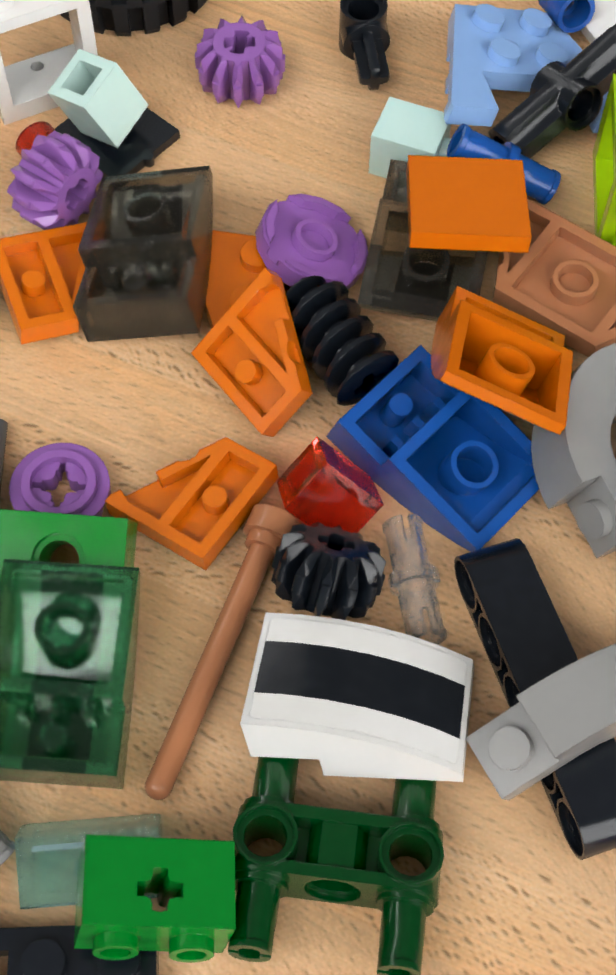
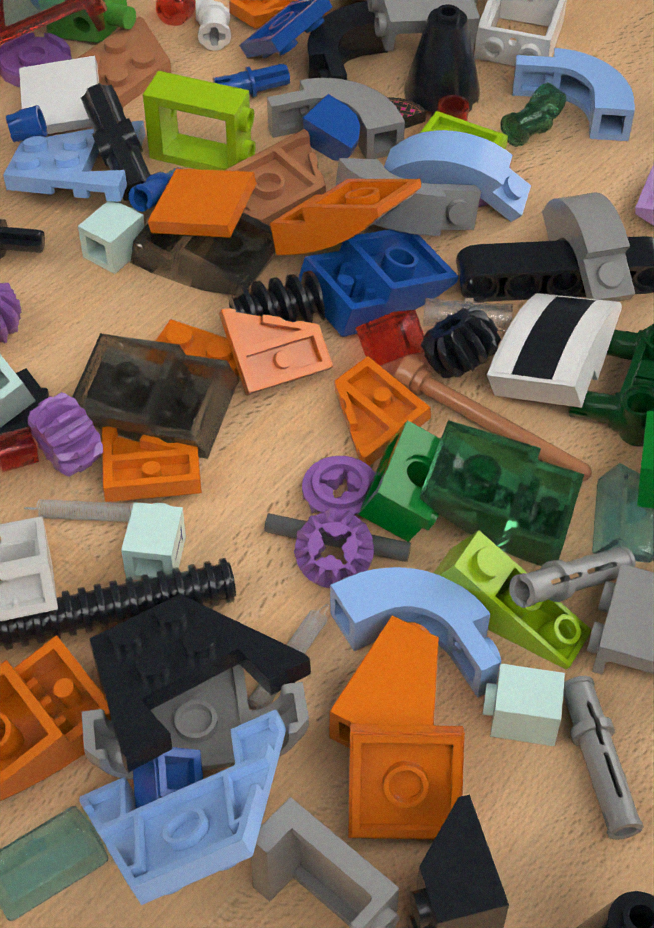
camera: 75 degrees left, 10 degrees down
(310, 239) = (182, 307): medium lavender tile -> none

